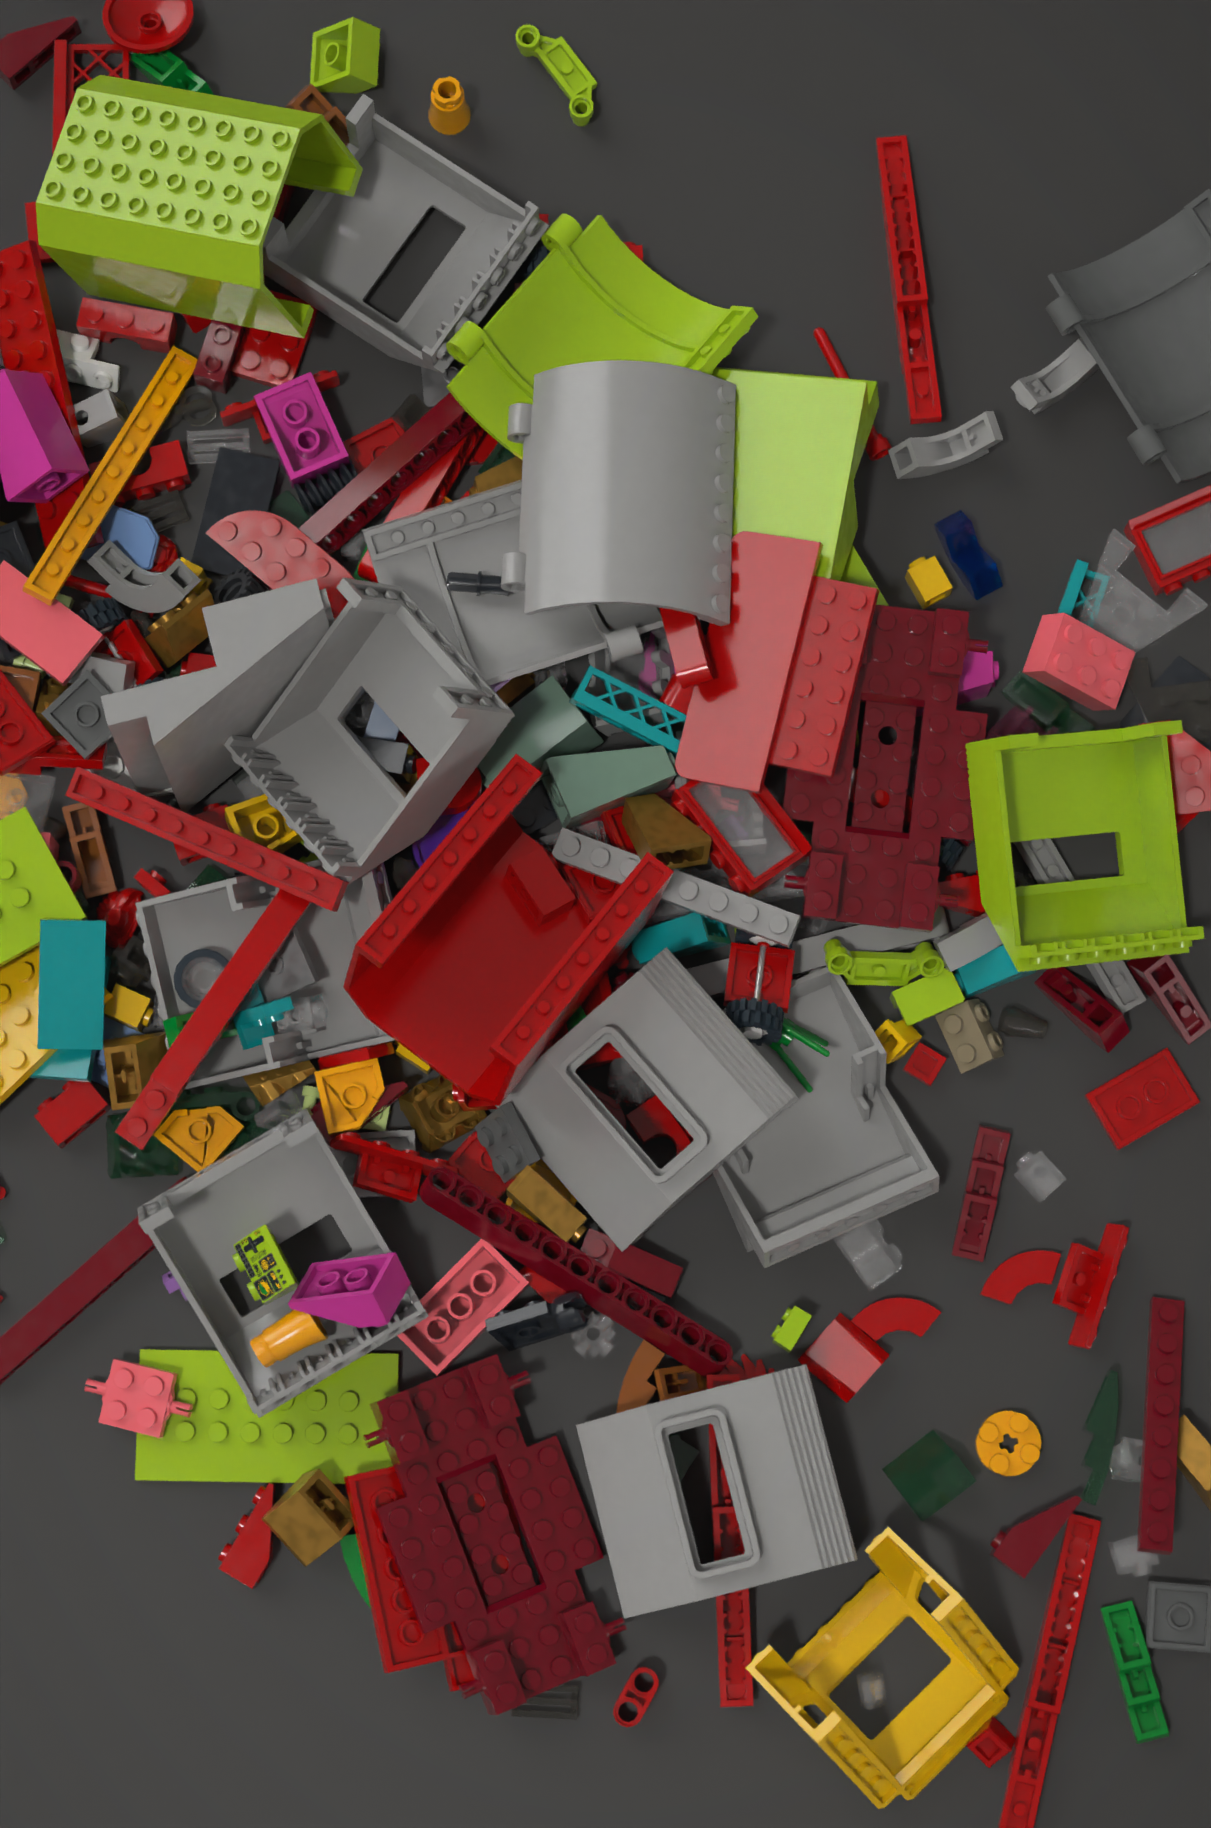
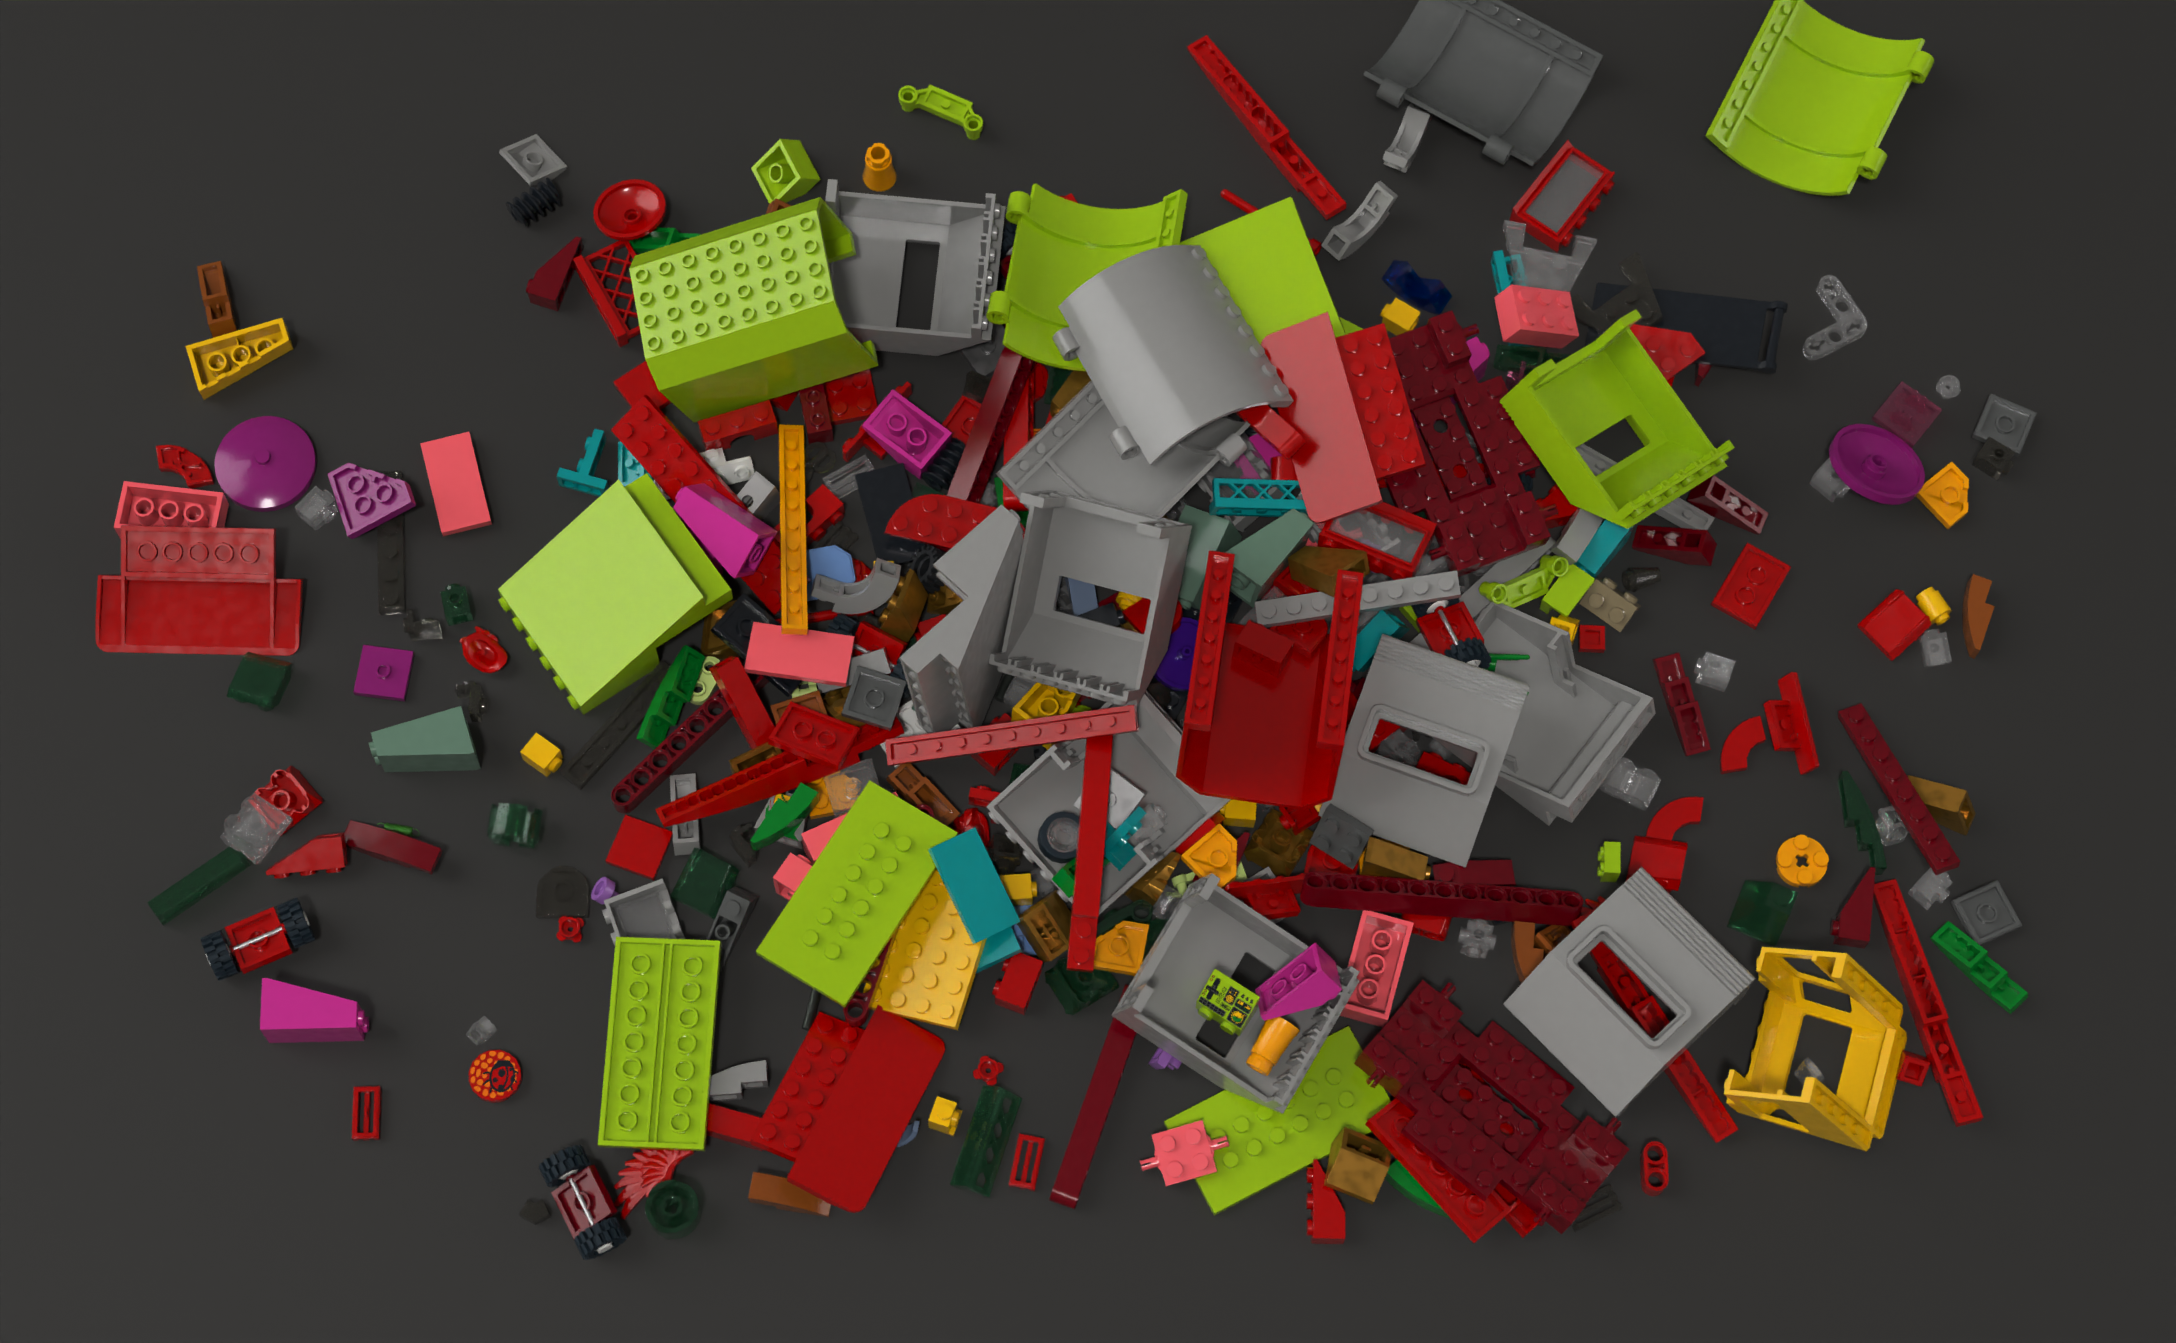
camera: 30 degrees left, 10 degrees down
(475, 583) = (1098, 468): black axle -> none
(538, 1321) = (1436, 945): black plate -> none

